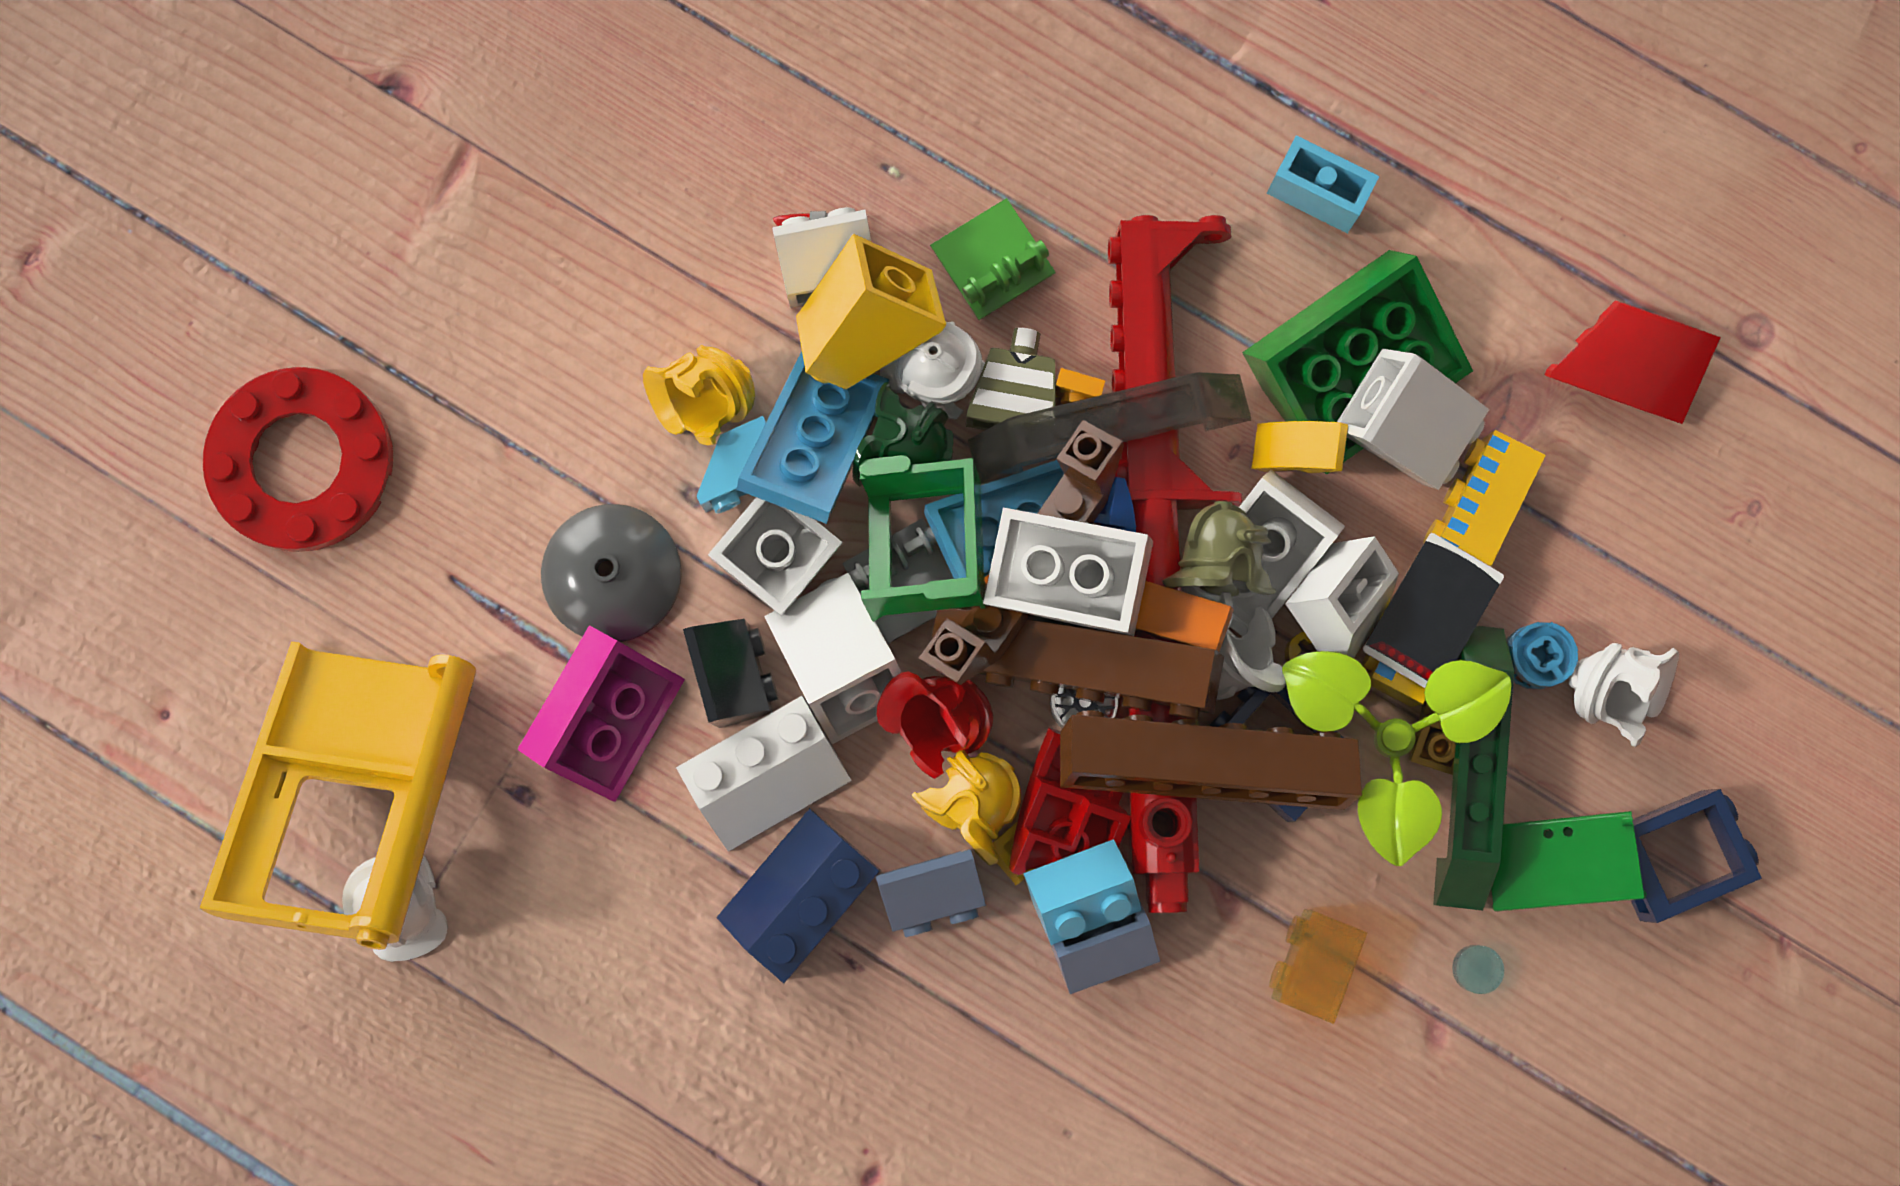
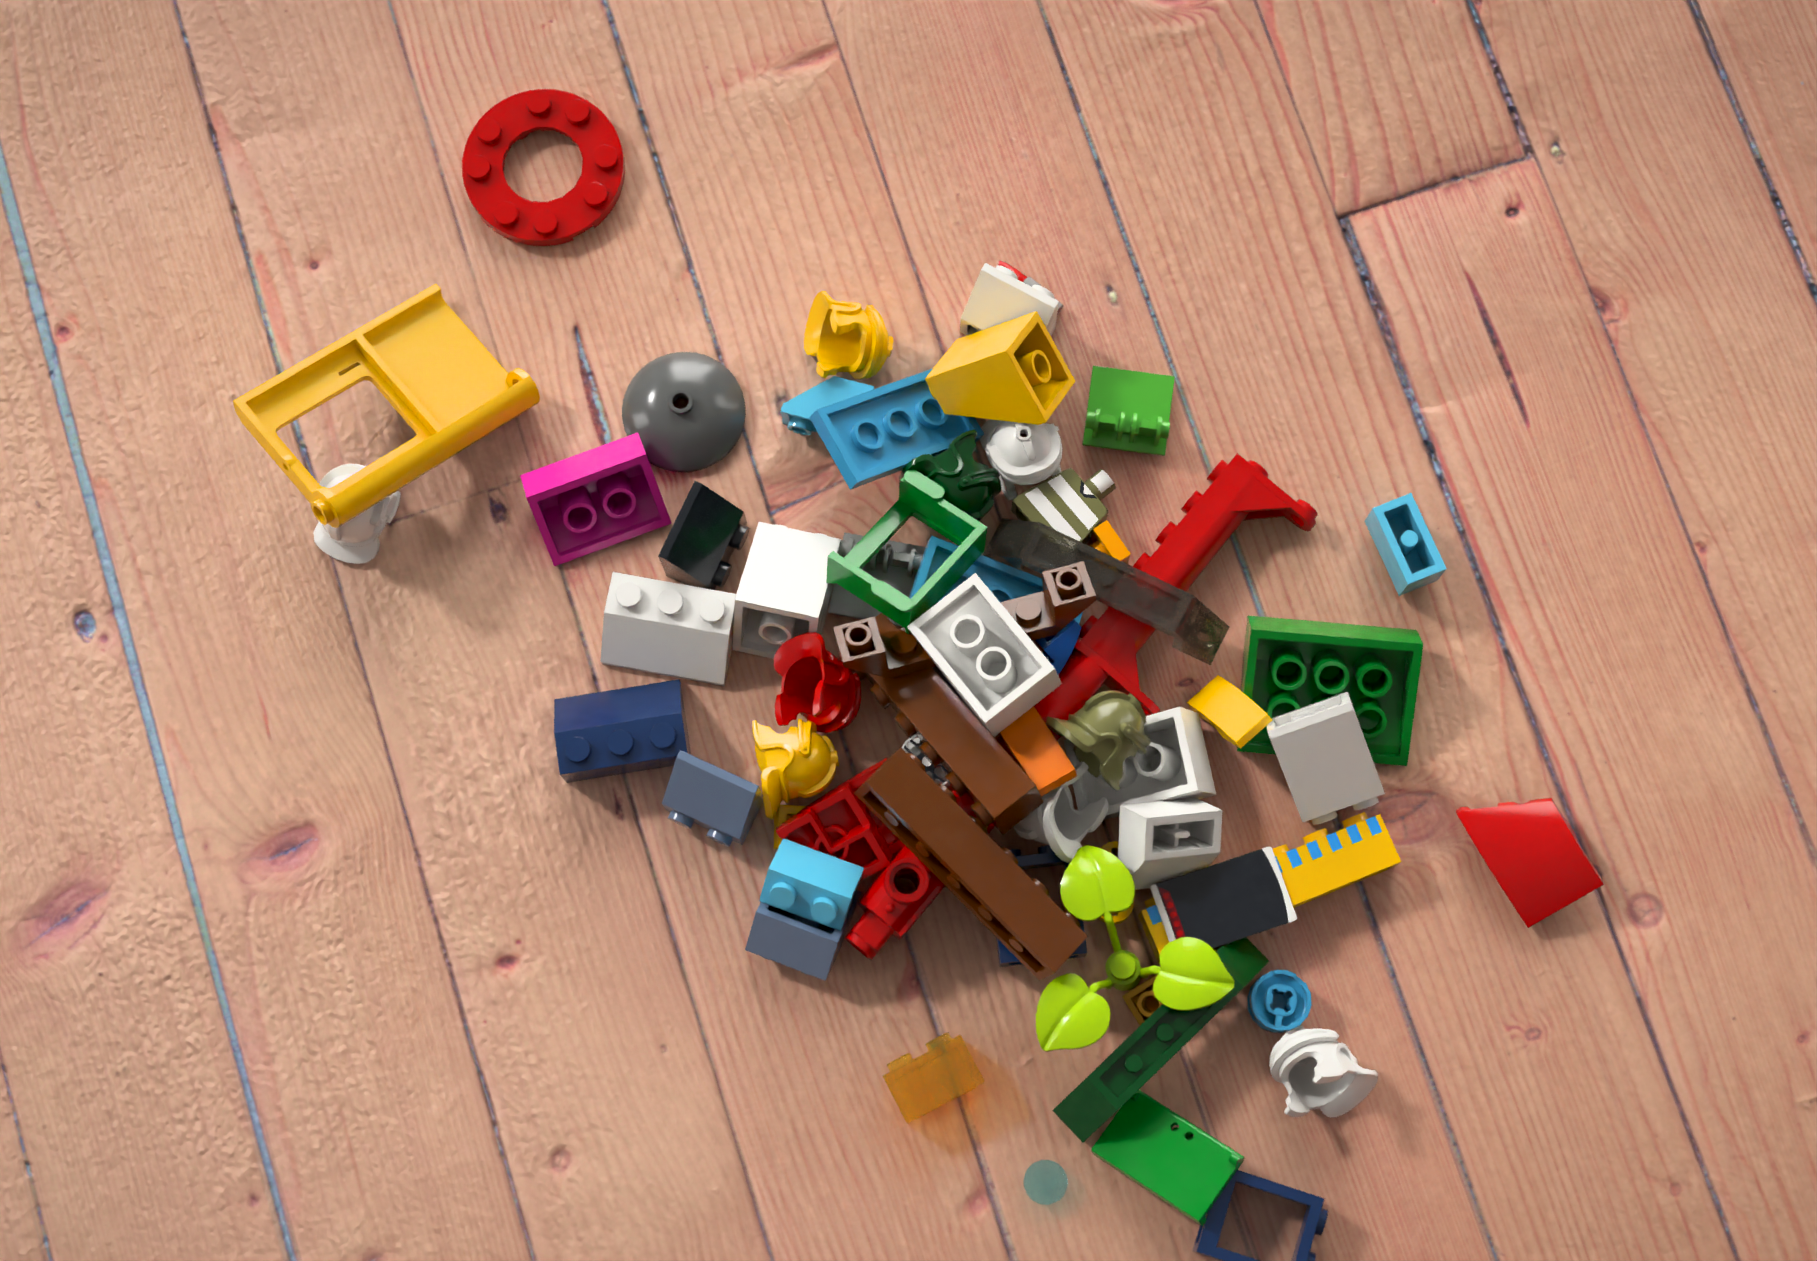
camera: 45 degrees right, 5 degrees down
(774, 552) = (801, 483): white slope -> none

